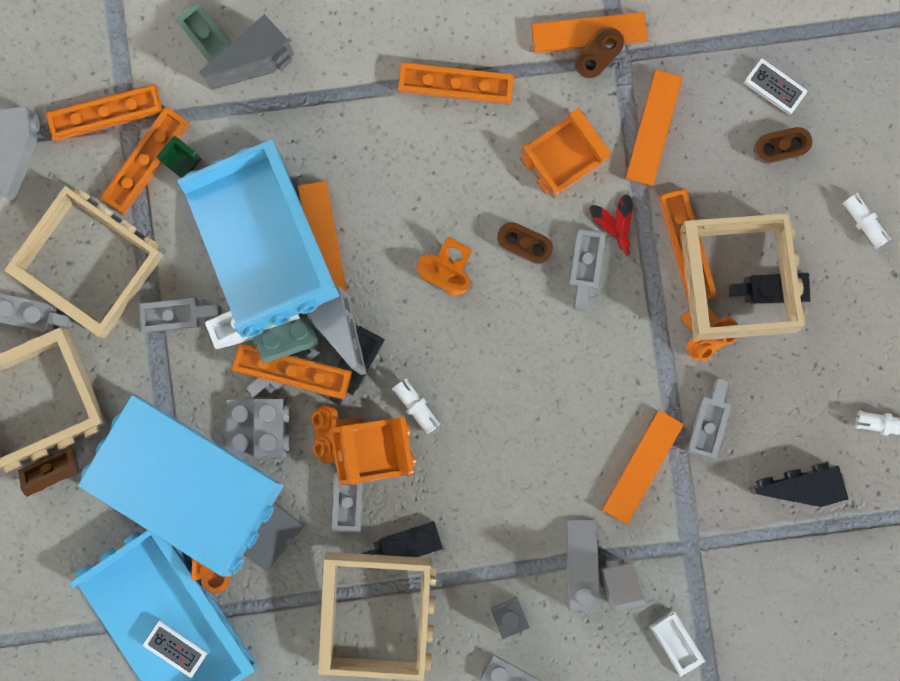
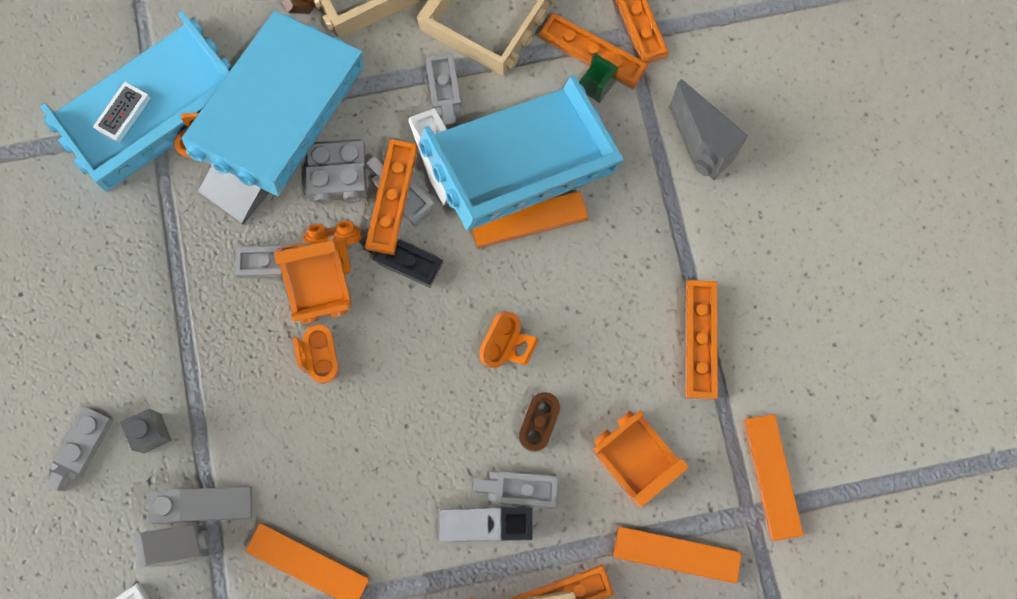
camera: 85 degrees right, 10 degrees down
(203, 32) = (727, 88): sand green plate -> none
(285, 340) = (422, 186): sand green plate -> none
(338, 326) = (435, 238): light grey slope -> none
(367, 667) = (99, 293): tan window -> none
(410, 542) = (222, 321): black hinge -> none
(416, 406) = (363, 322): white pin -> none
(445, 450) = (317, 354): none -> orange bracket
(596, 50) = (752, 487): reddish brown plate -> none
(616, 228) = (565, 522): red piece -> none
(617, 297) = (486, 524): none -> slope

